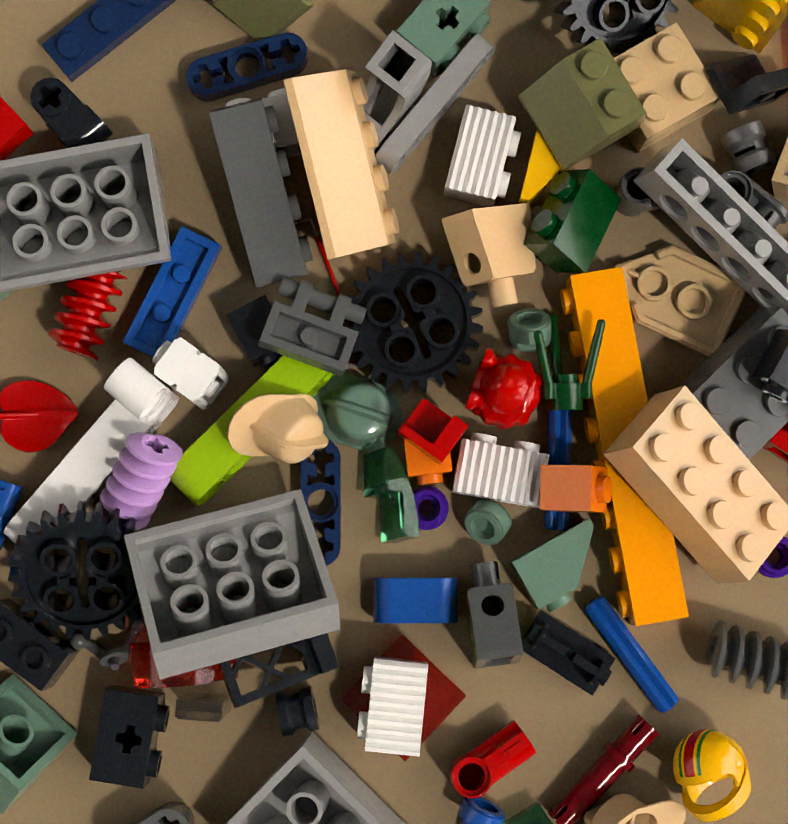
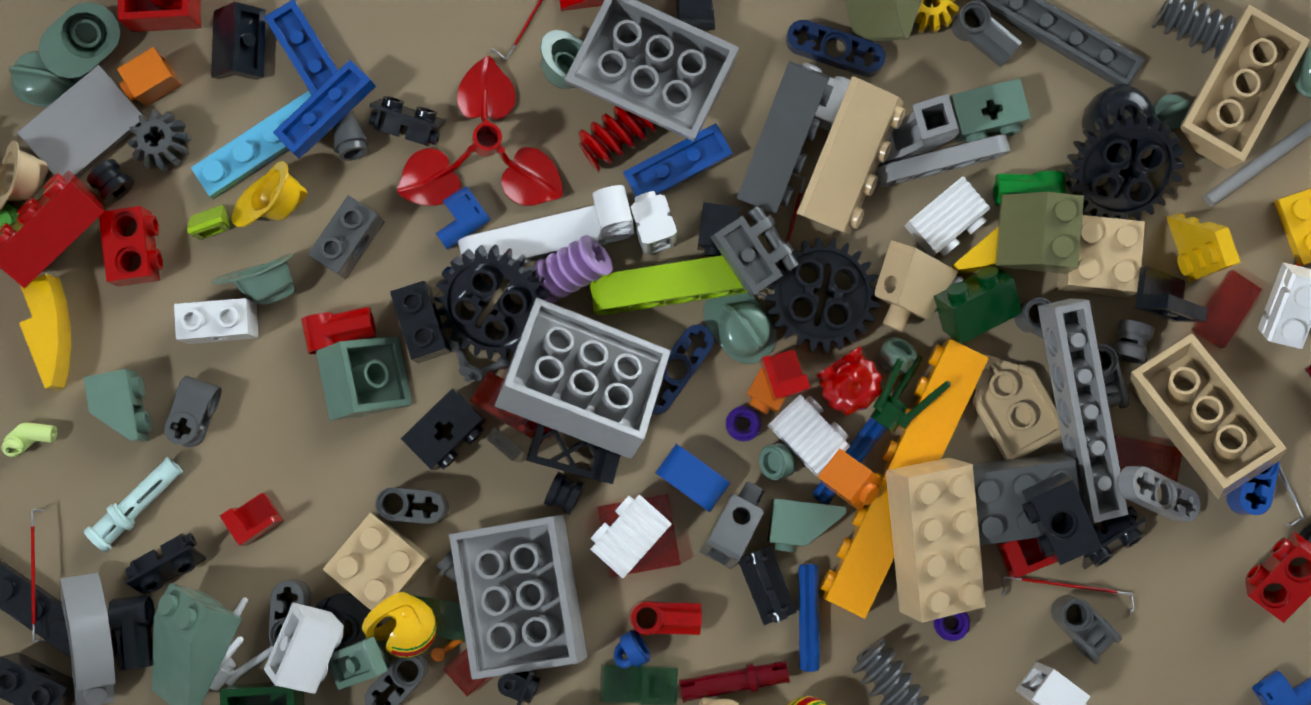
camera: 40 degrees right, 0 degrees up
(278, 427) = (684, 299): tan piece -> none
(389, 483) = (731, 388): clear green slope -> none
(527, 72) = (1019, 183): none -> green piece

